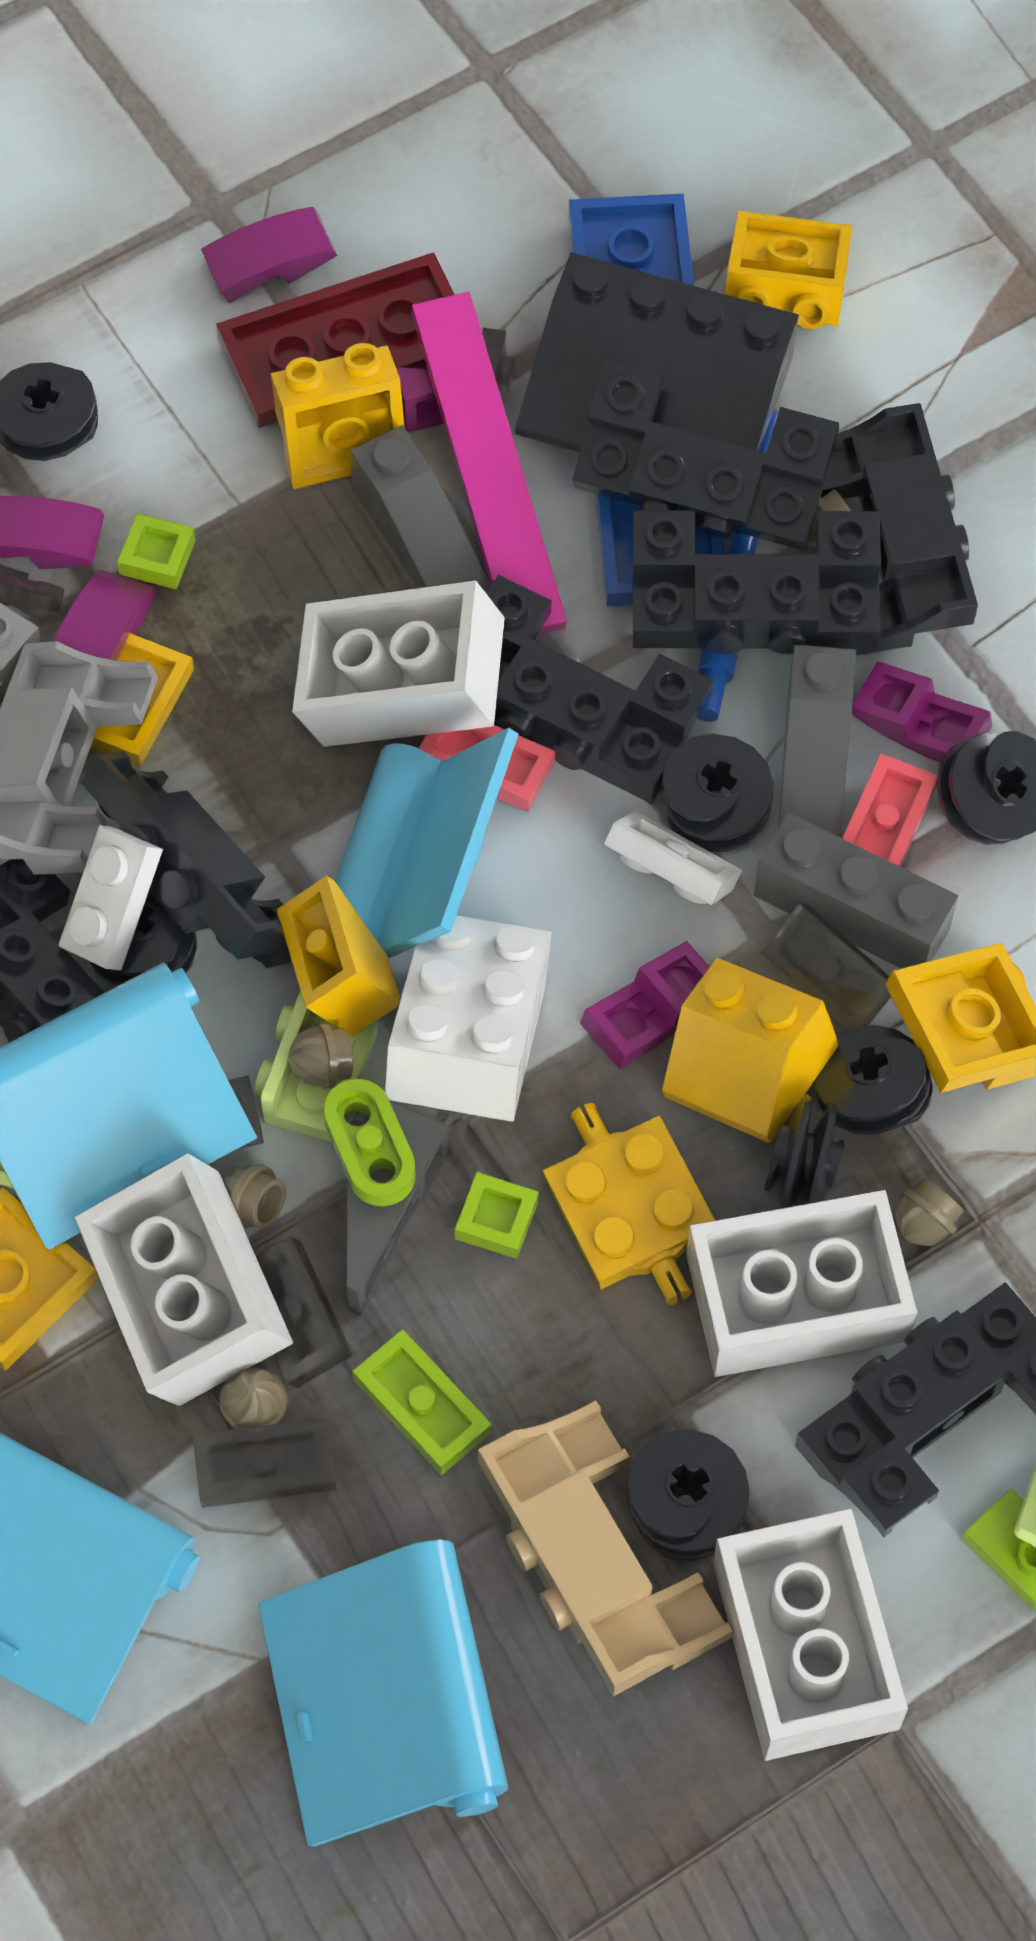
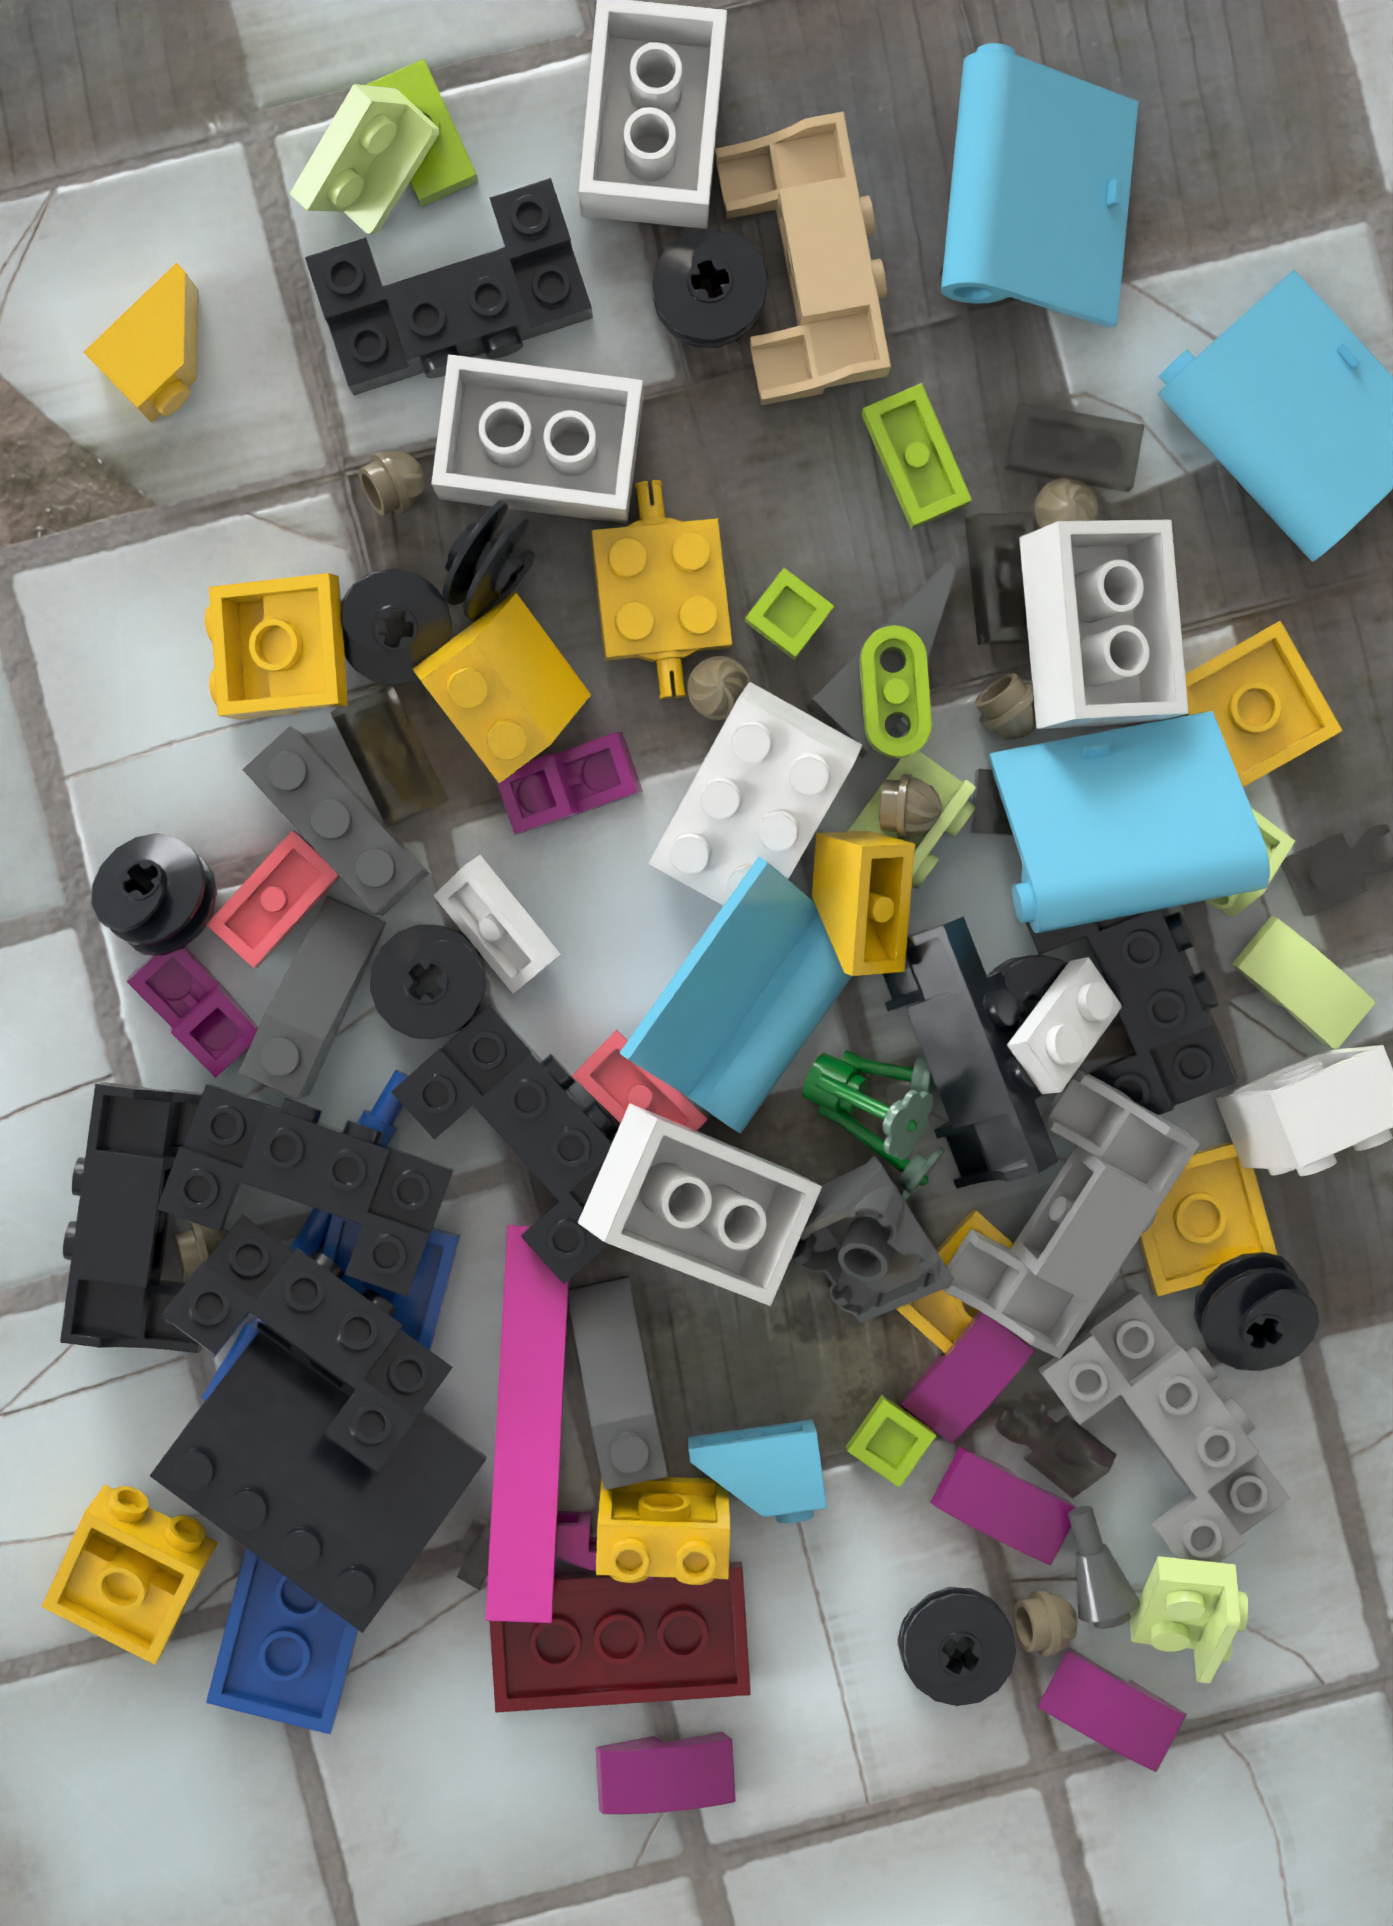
camera: 165 degrees left, 25 degrees up
(233, 693) = (869, 1245): none -> dark grey slope
(266, 497) = (766, 1468): none -> medium azure slope
(301, 814) = (840, 1088): none -> plant
(541, 1129) = (716, 686): none -> dark tan plate

